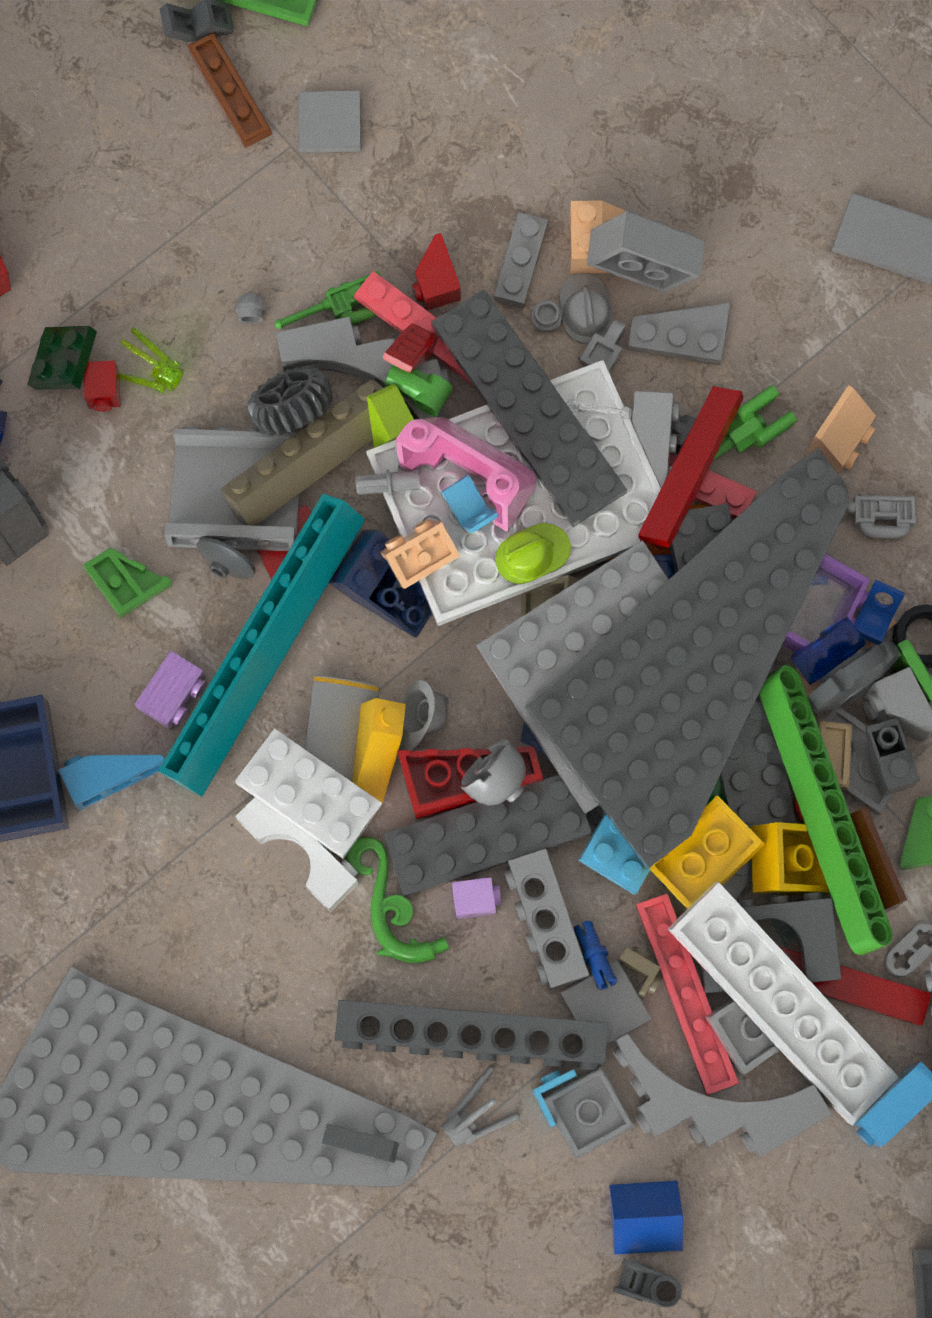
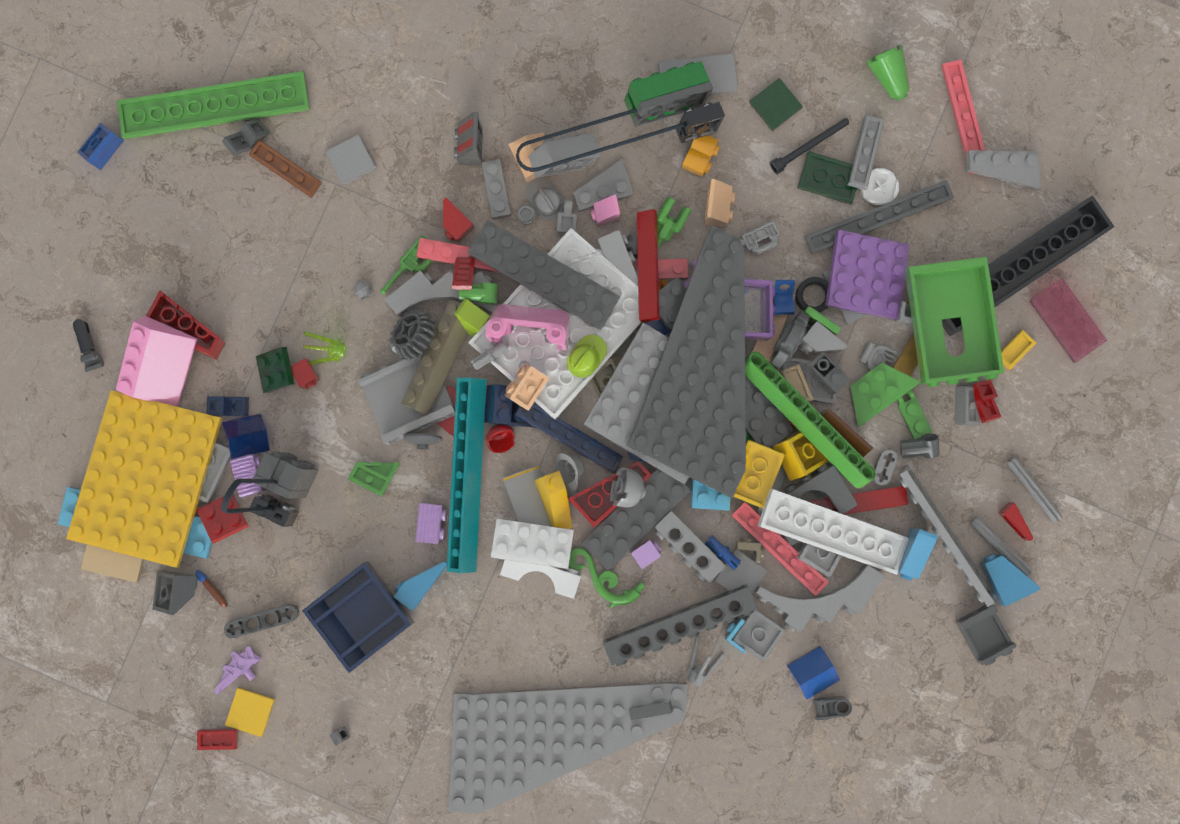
camera: 20 degrees left, 10 degrees up
(341, 617) = (500, 438): none -> red hair
(447, 664) = (570, 437): none -> dark blue tile
(468, 505) = (540, 347): medium azure bracket -> none
(517, 171) = (469, 140): none -> dark grey slope
(668, 364) = (606, 211): none -> bright pink slope
(819, 234) = (654, 99): none -> piece
(828, 651) = (771, 332): clear blue slope -> none
(851, 350) = (700, 154): none -> light orange brick

